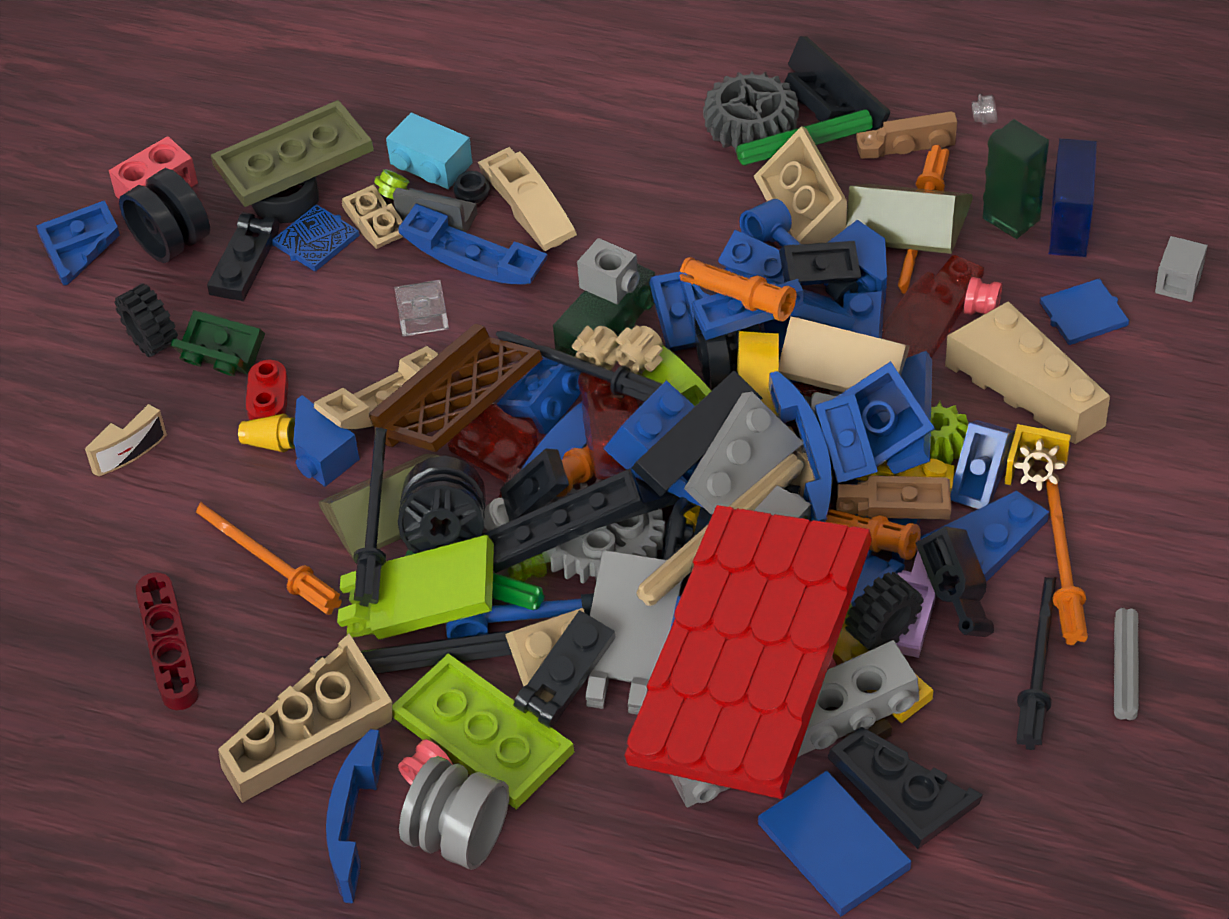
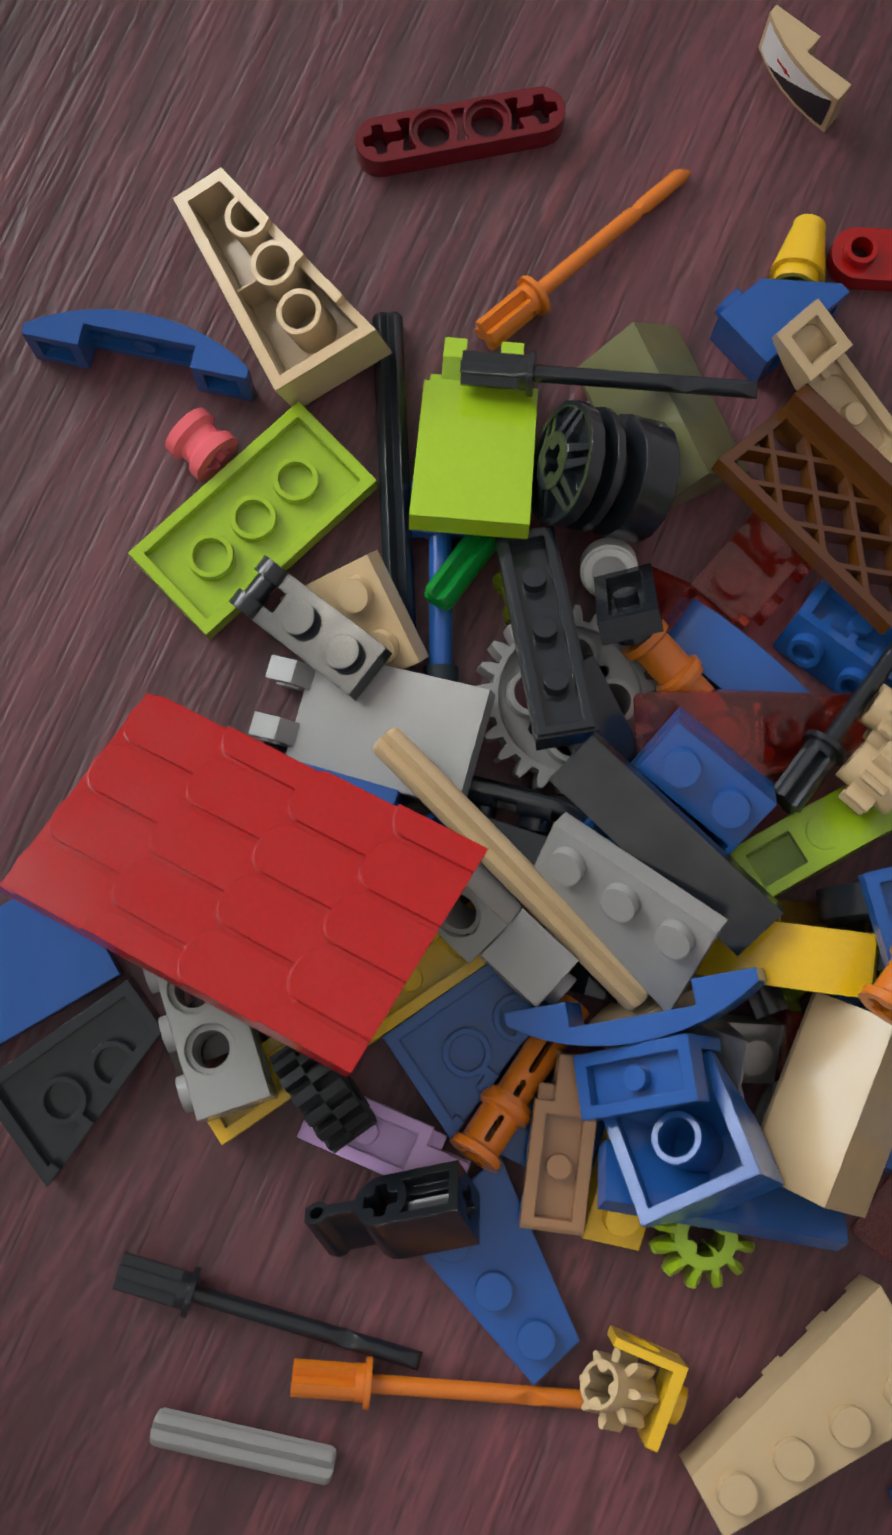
camera: 90 degrees right, 30 degrees up
(454, 812) = (106, 459): light grey wheel -> none
(981, 463) = (636, 1298): blue slope -> none

